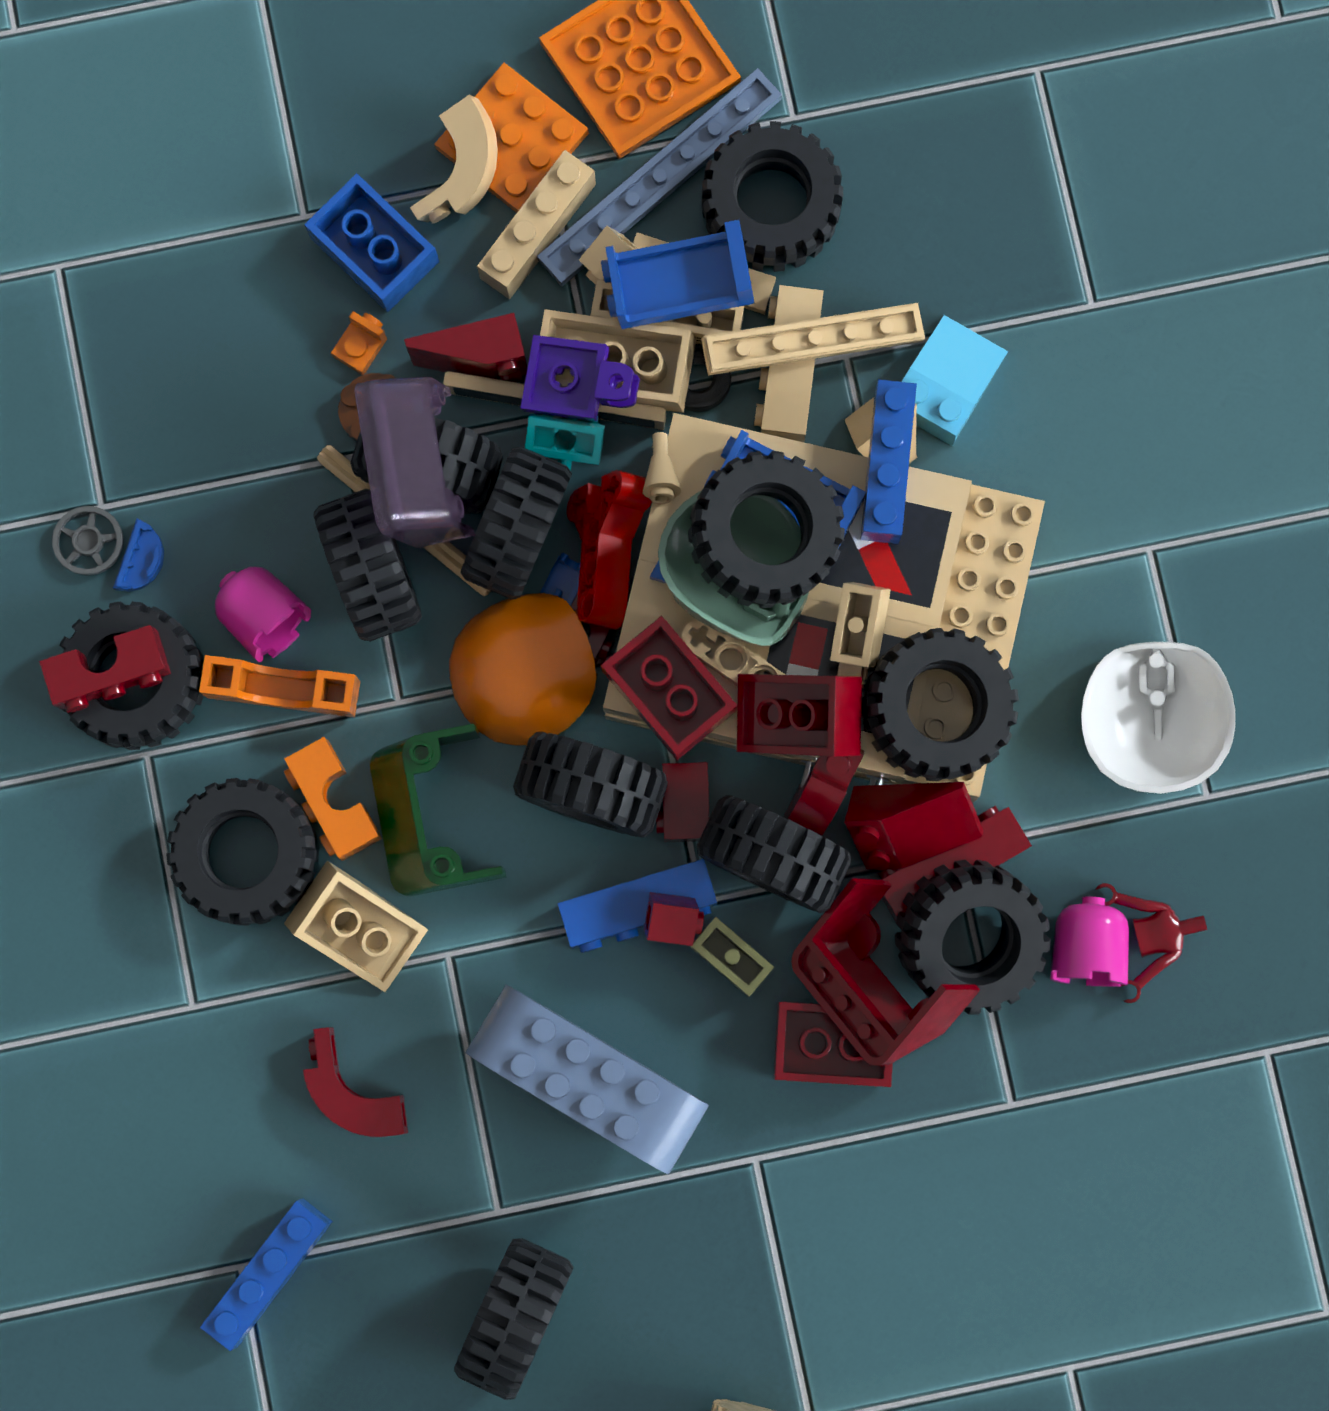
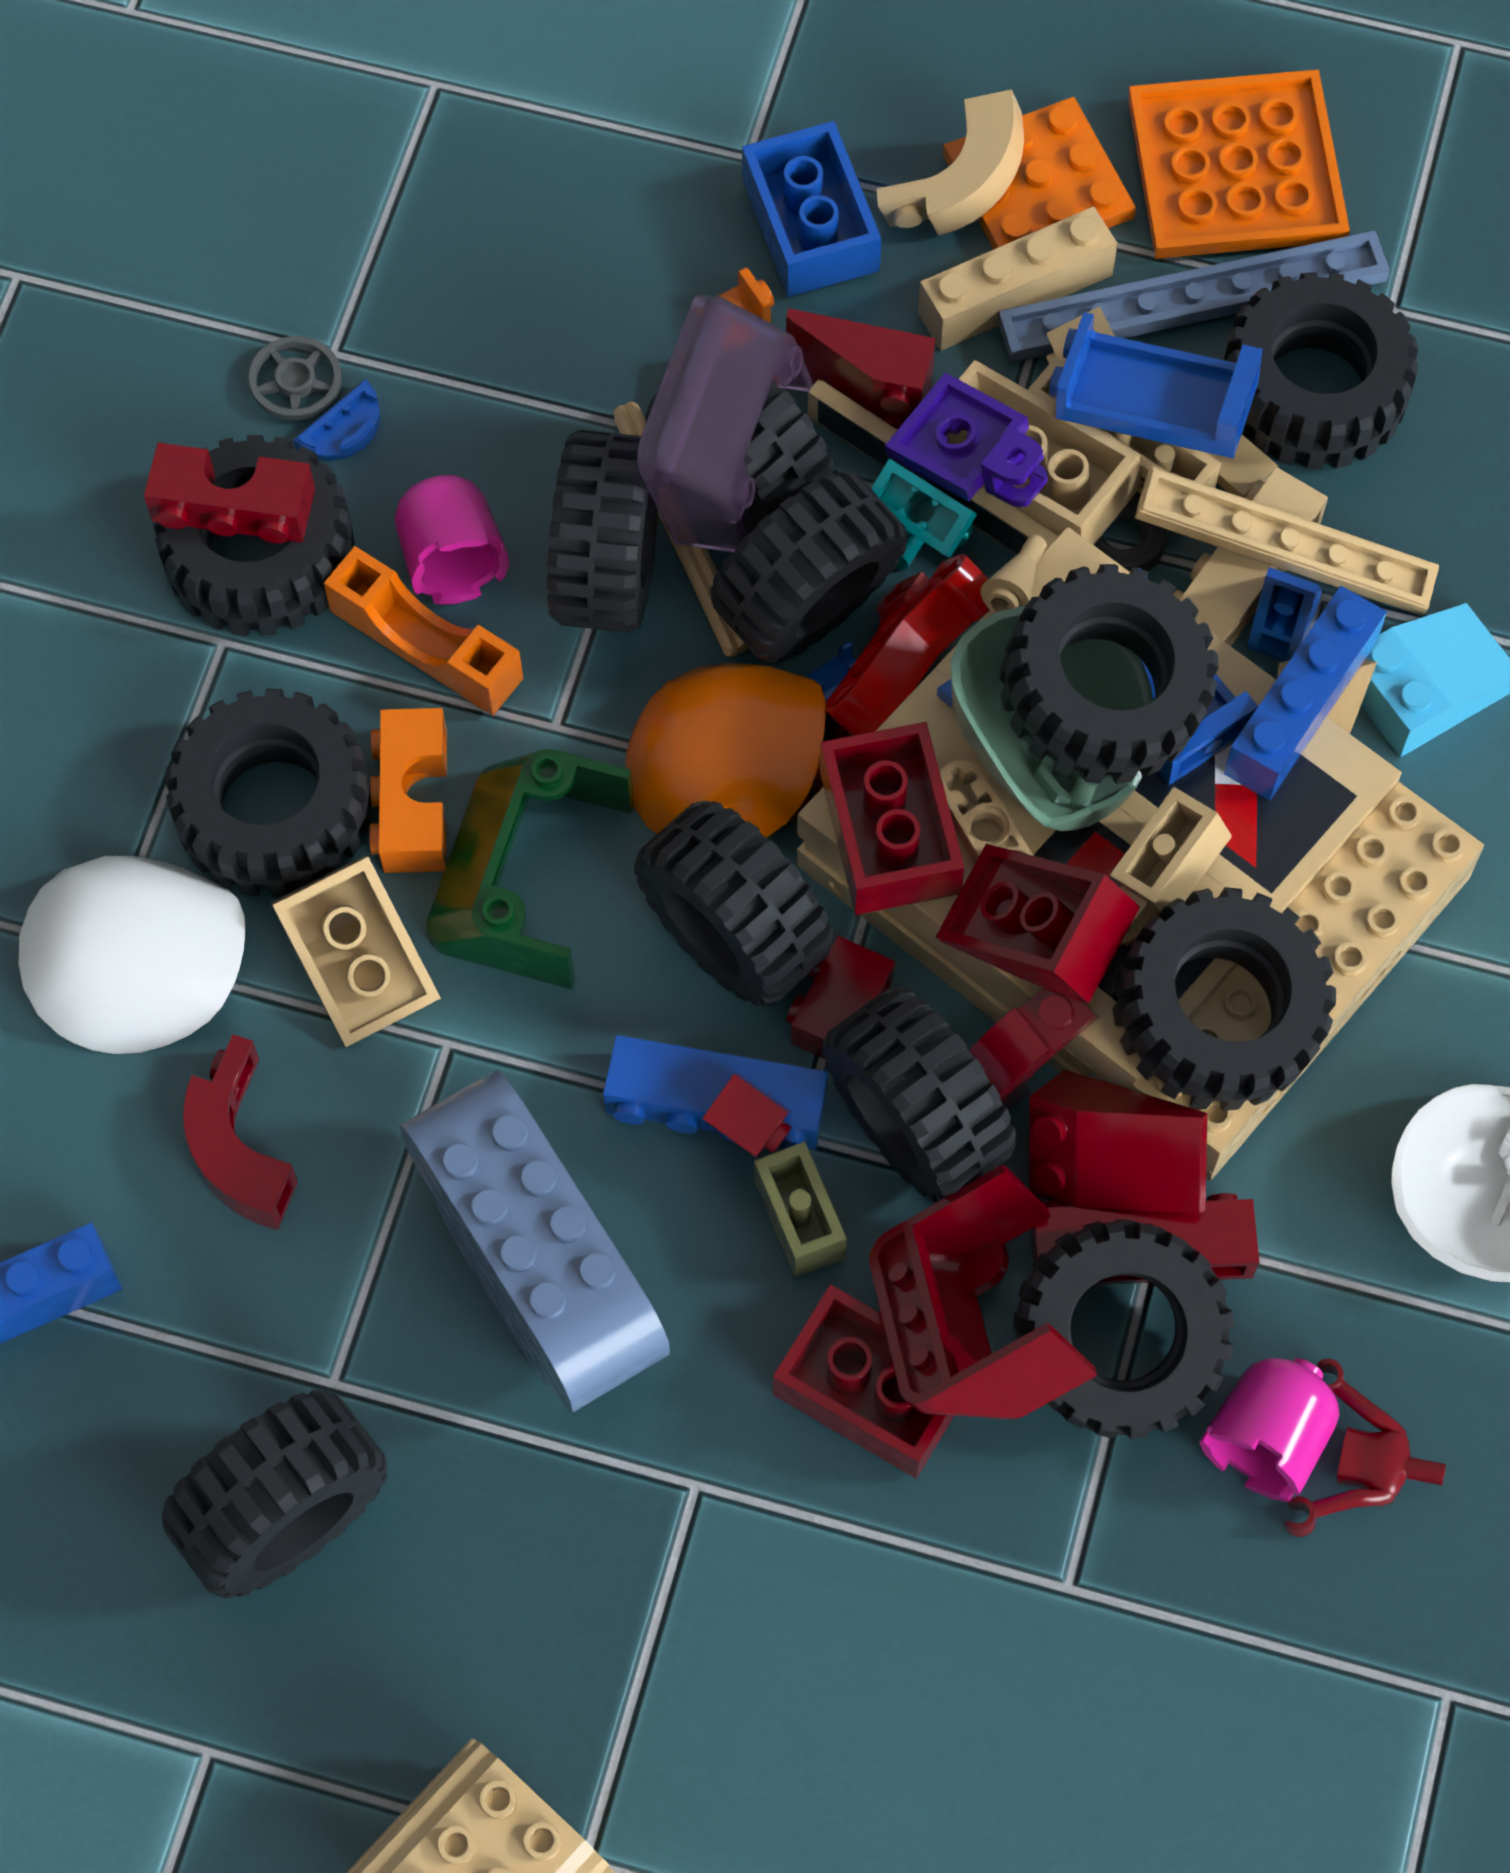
camera: 25 degrees right, 15 degrees down
(211, 1001) = (130, 953): none -> white piece
(836, 387) = (1283, 614): none -> blue slope

